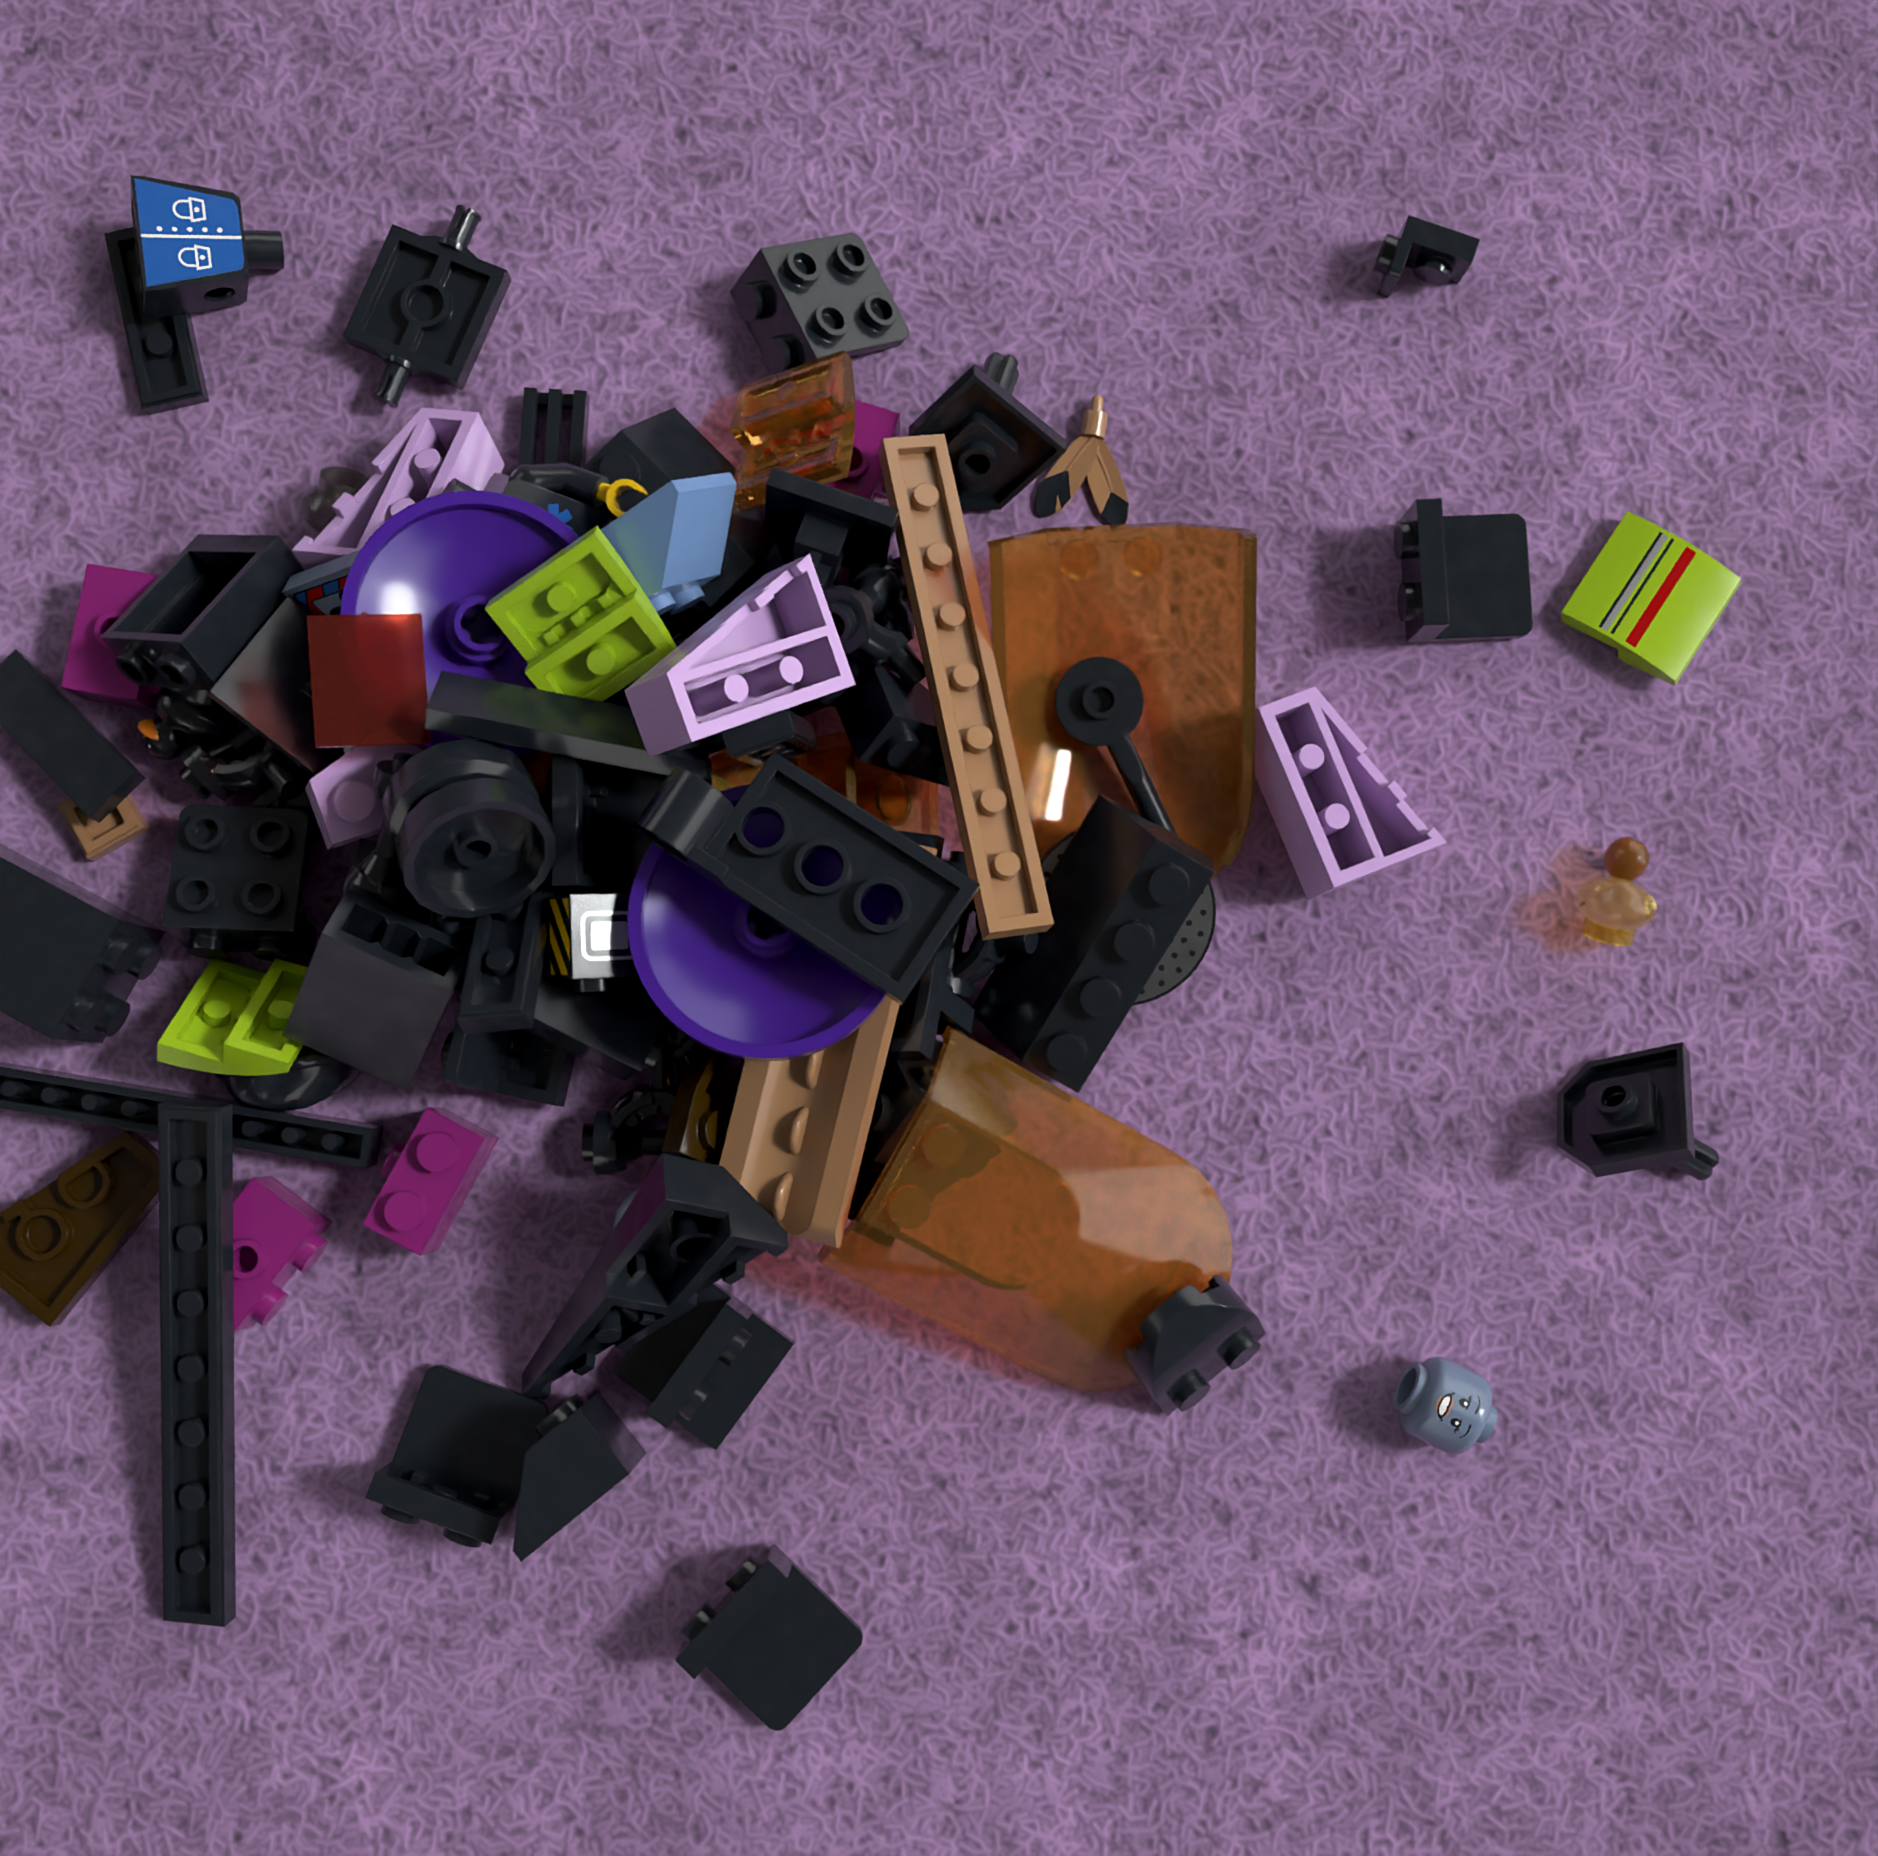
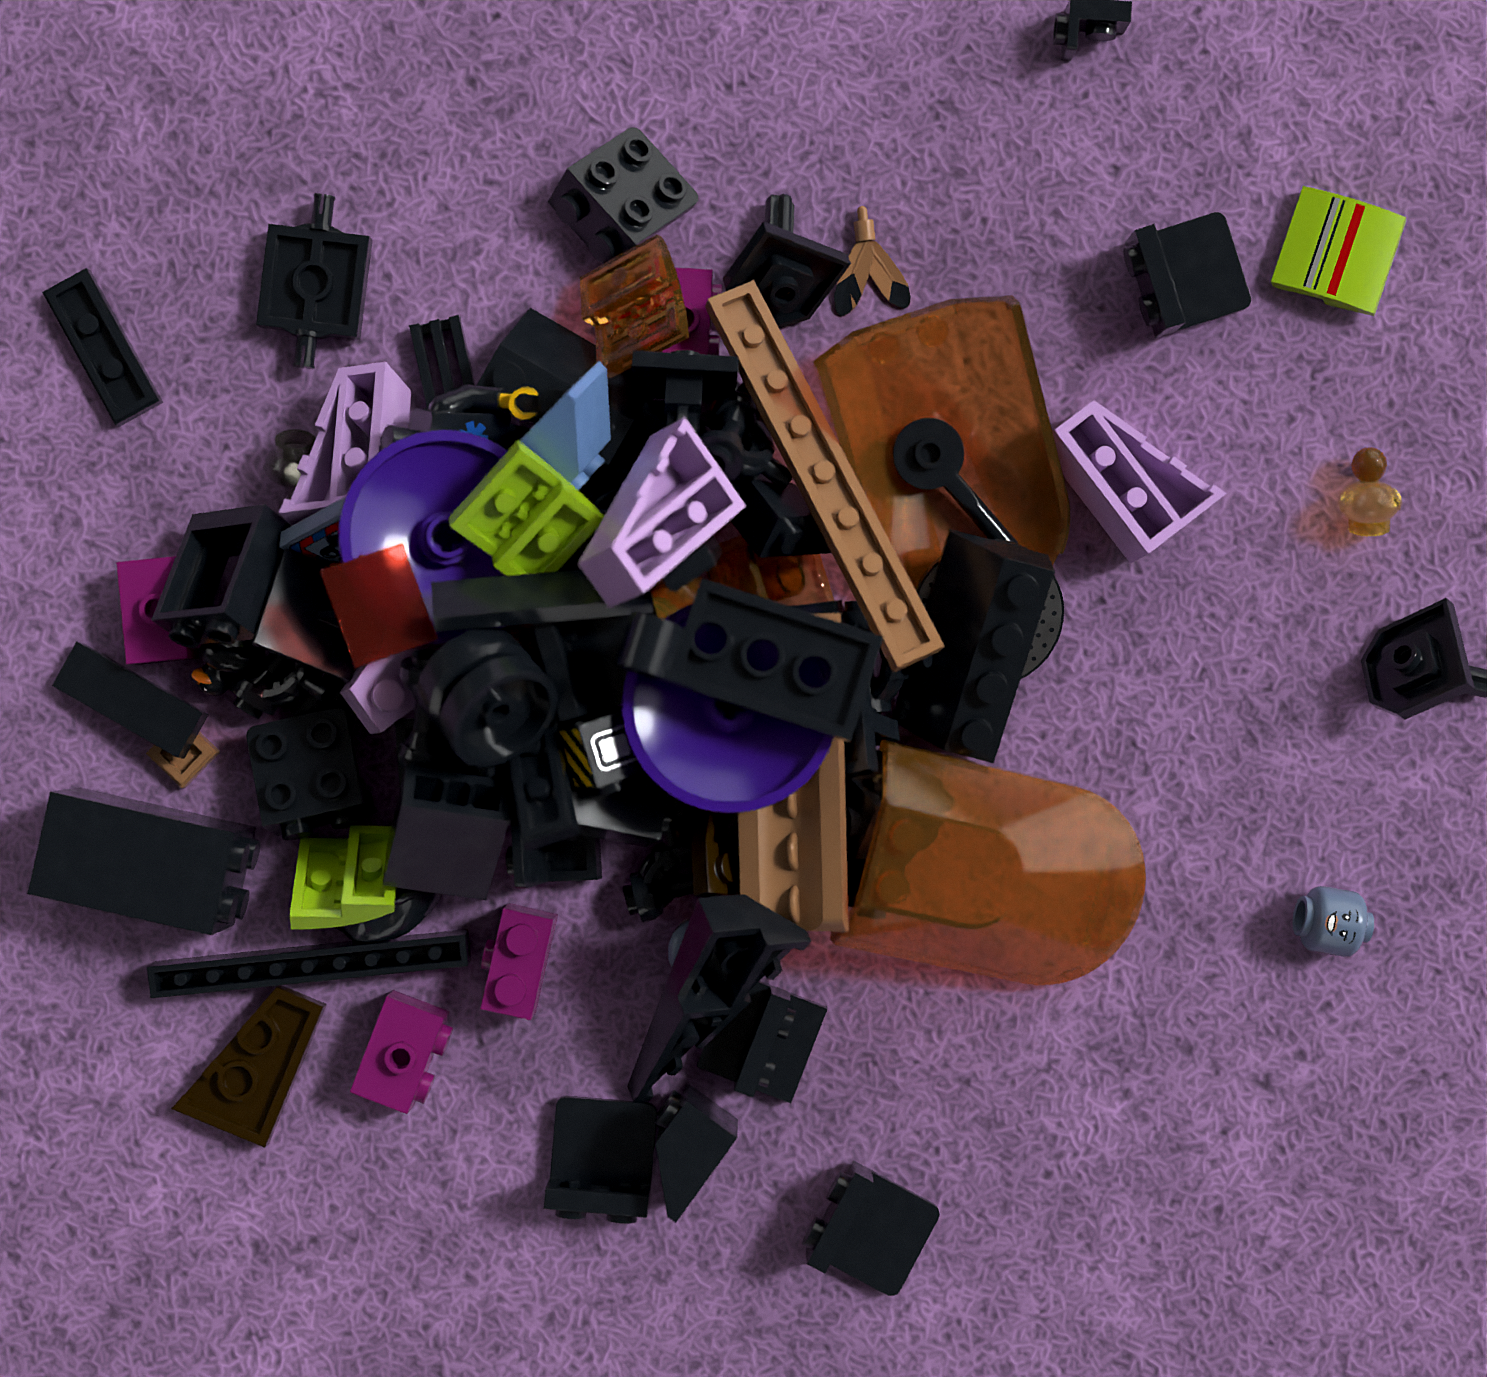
camera: 15 degrees left, 5 degrees up
(195, 247) = (119, 286): torso -> none
(197, 1361) = (386, 1142): black tile -> none
(1192, 1342) = (1129, 926): black slope -> none

